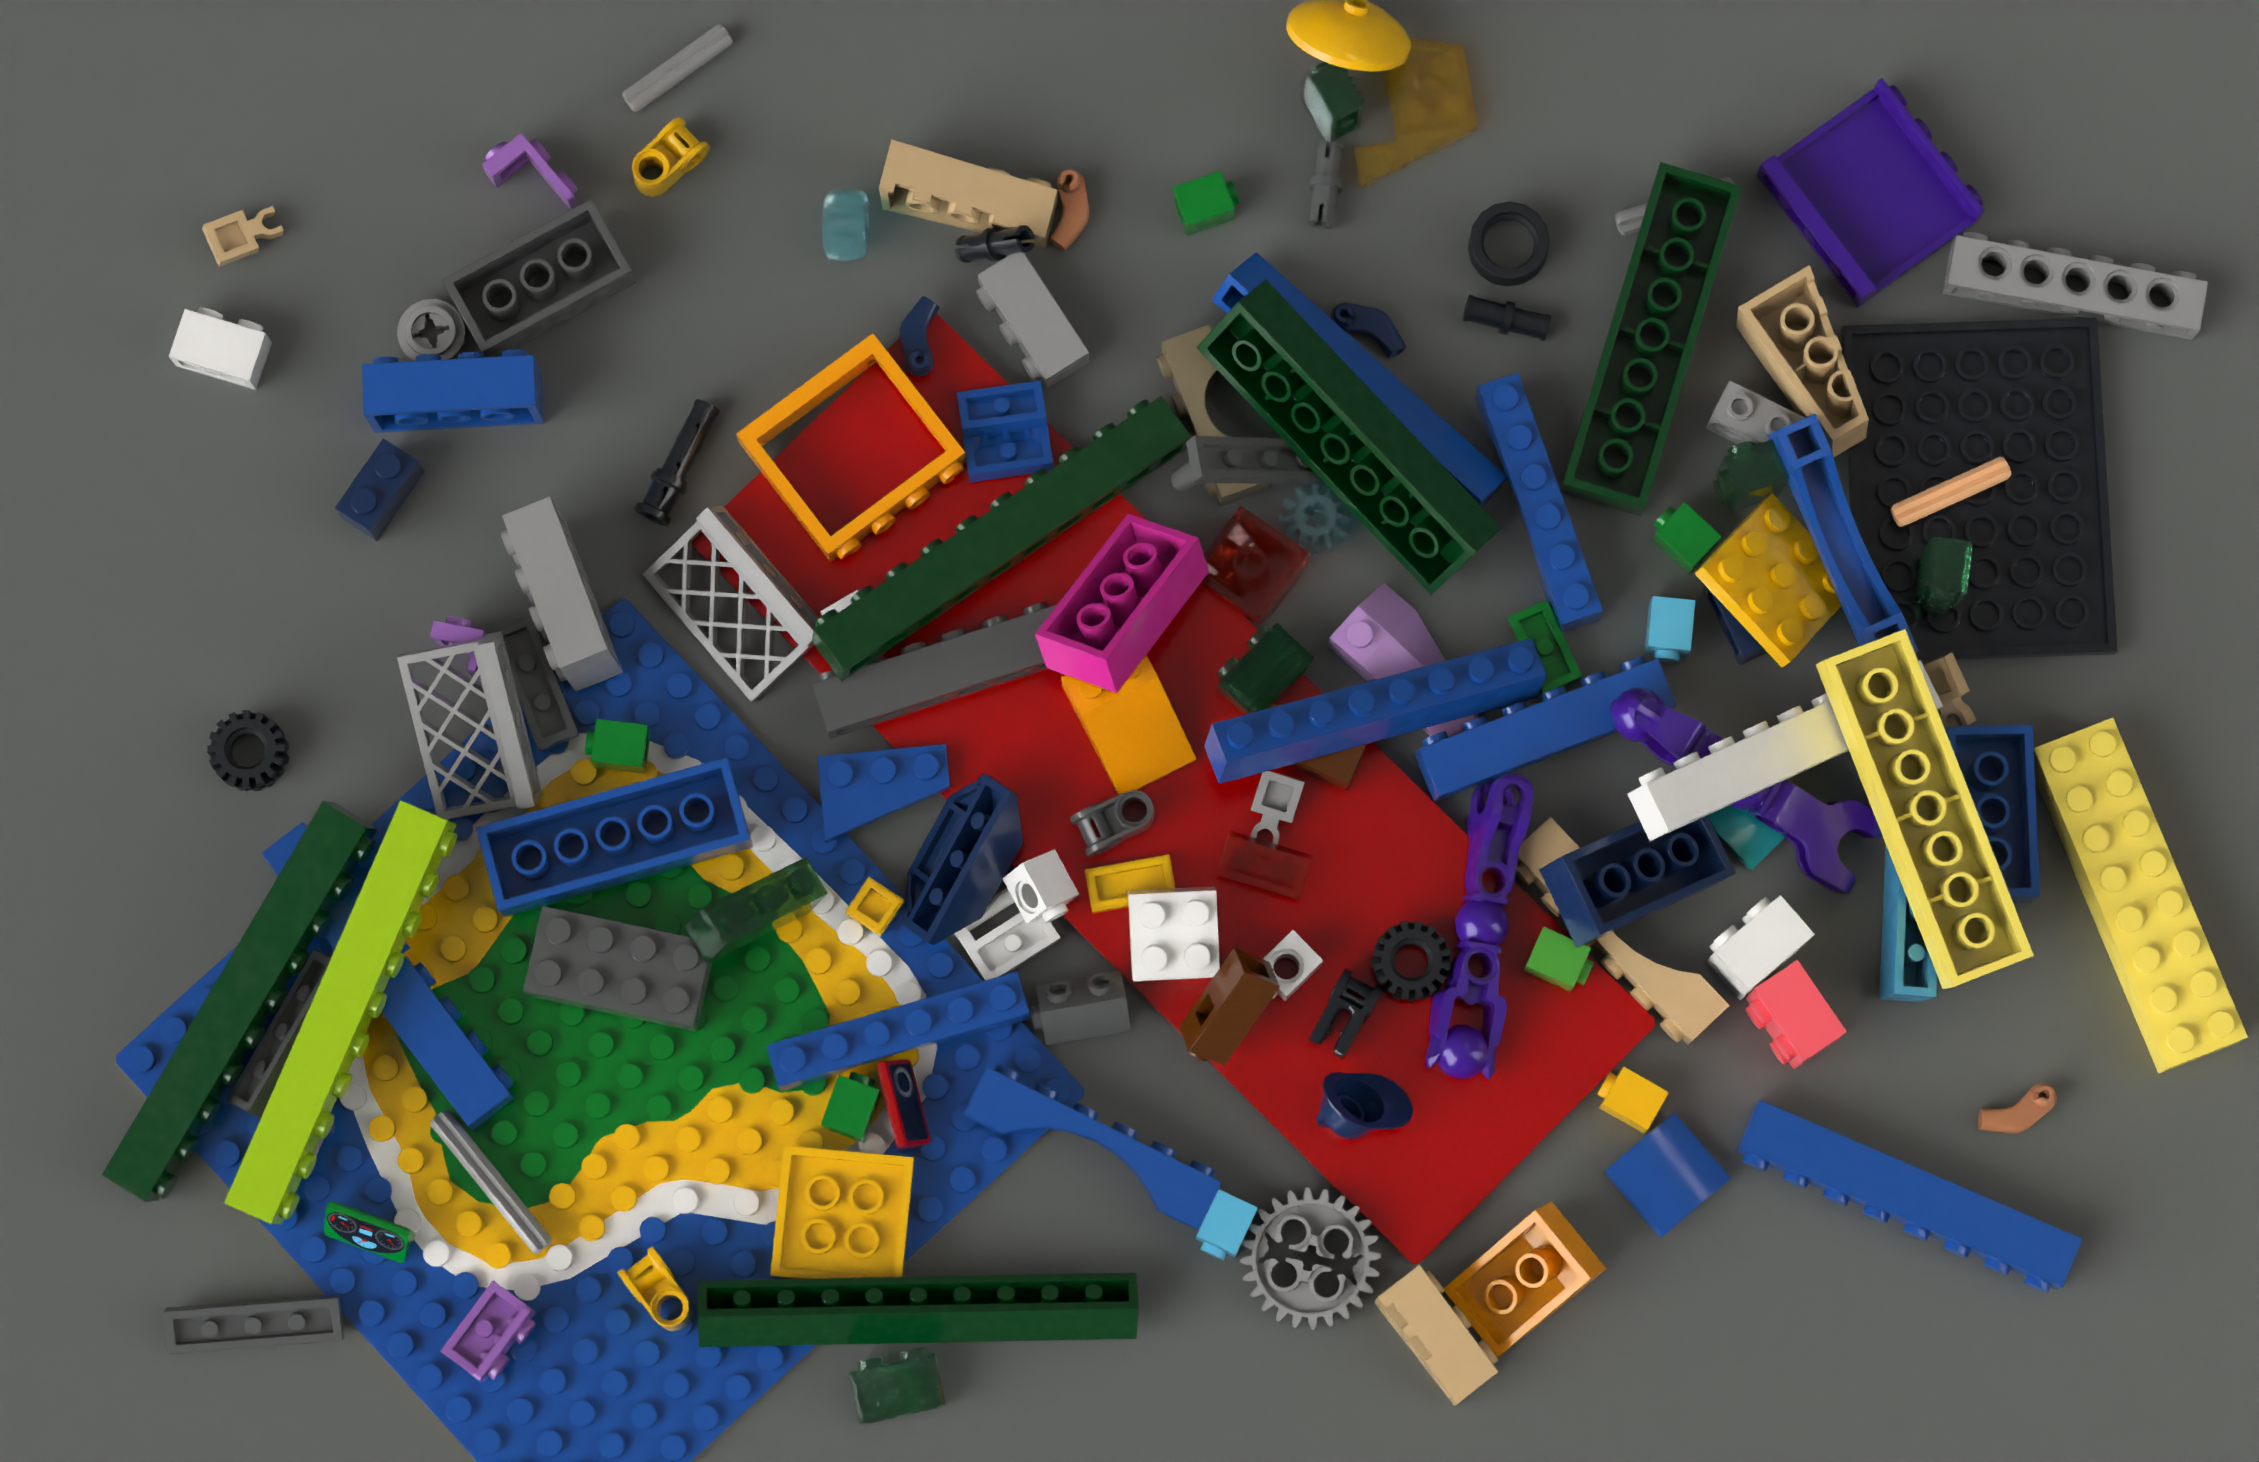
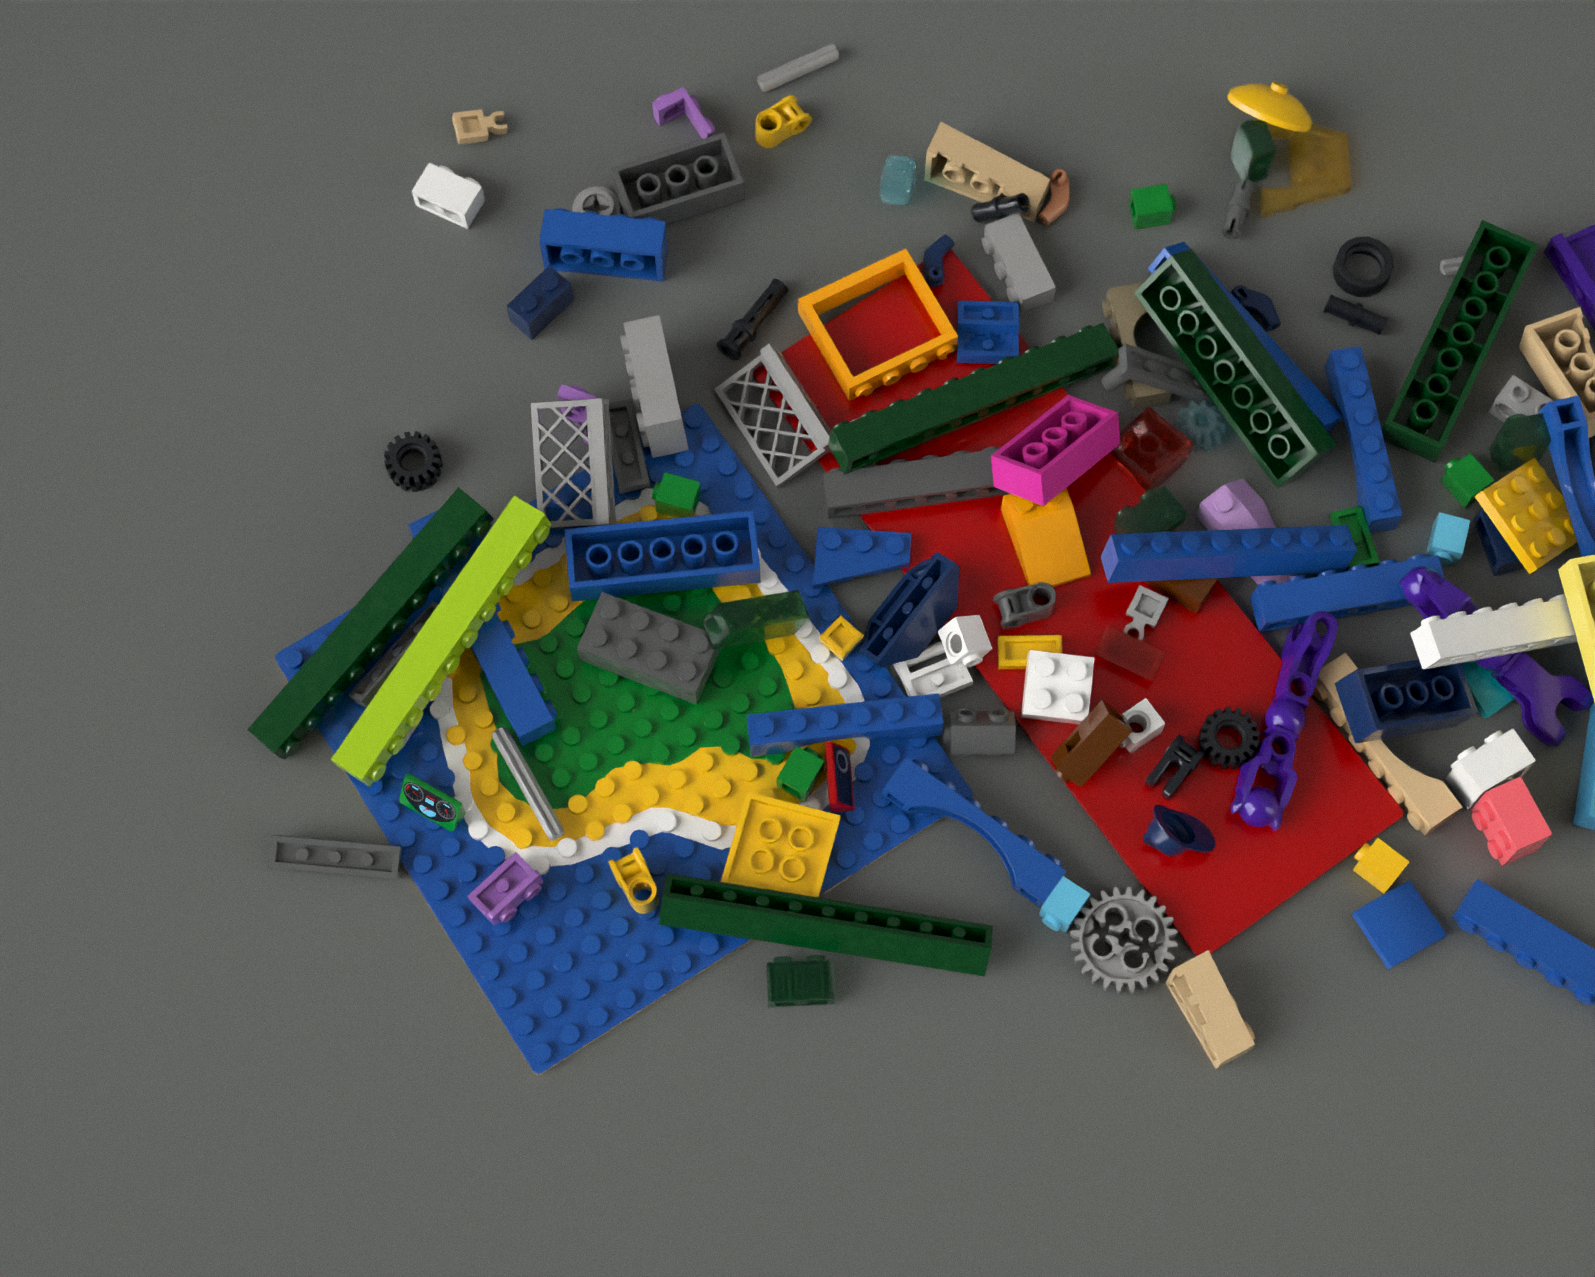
camera: 10 degrees right, 10 degrees down
(1524, 1278) = (1283, 981): light orange slope -> none
(1559, 960) = (1338, 754): bright green brick -> none

